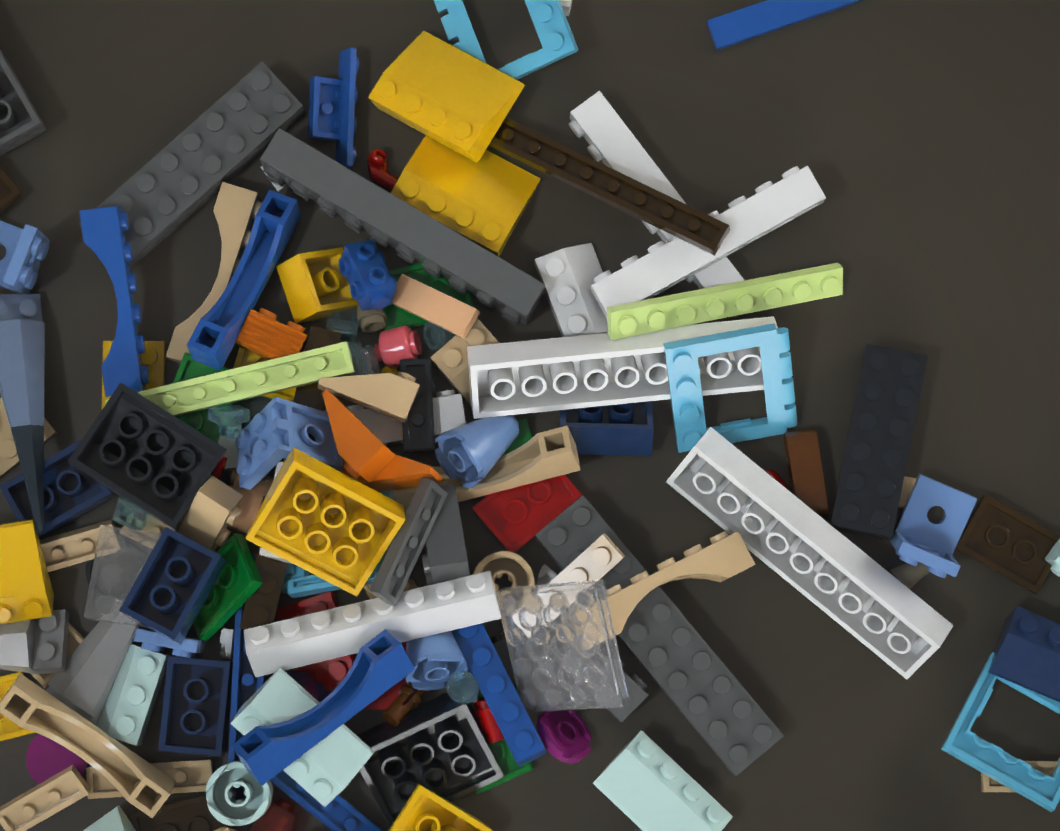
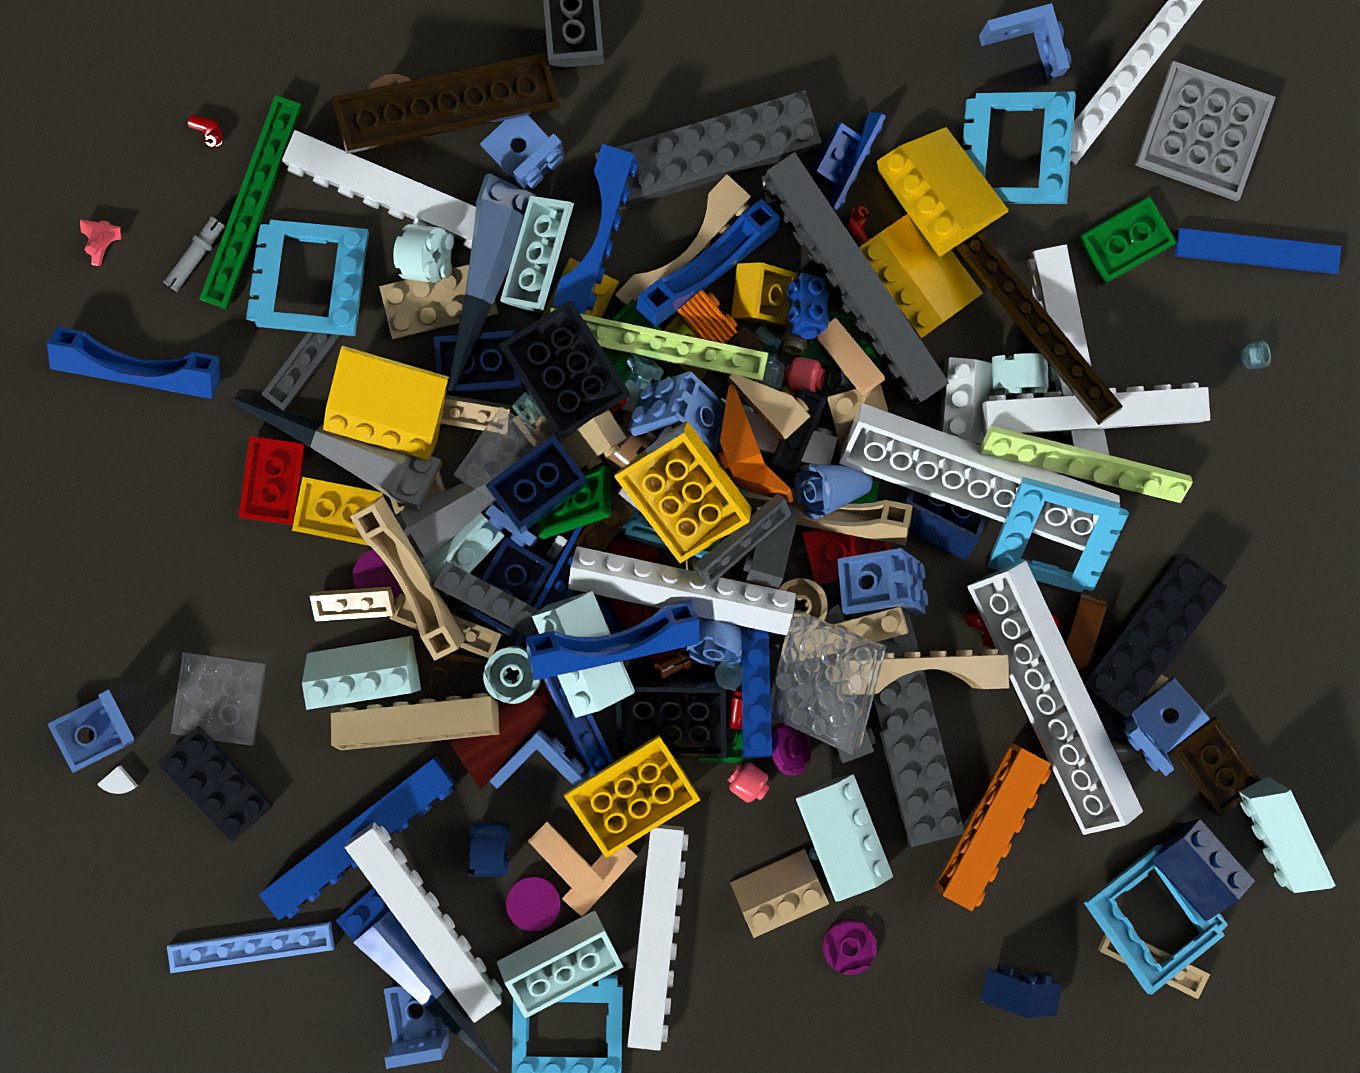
camera: 25 degrees right, 5 degrees up
(65, 353) = (536, 253): none -> light aqua slope
(176, 728) = (487, 598): none -> dark grey plate
(538, 790) = (748, 782): none -> coral head
(588, 509) = (896, 582): none -> medium blue bracket
(615, 241) = (1019, 374): none -> light aqua brick
(660, 57) = (1127, 239): none -> green tile
(692, 513) = (975, 620): none -> red arm
(809, 715) = (992, 827): none -> orange brick
(846, 110) = (1259, 355): none -> clear light blue tile

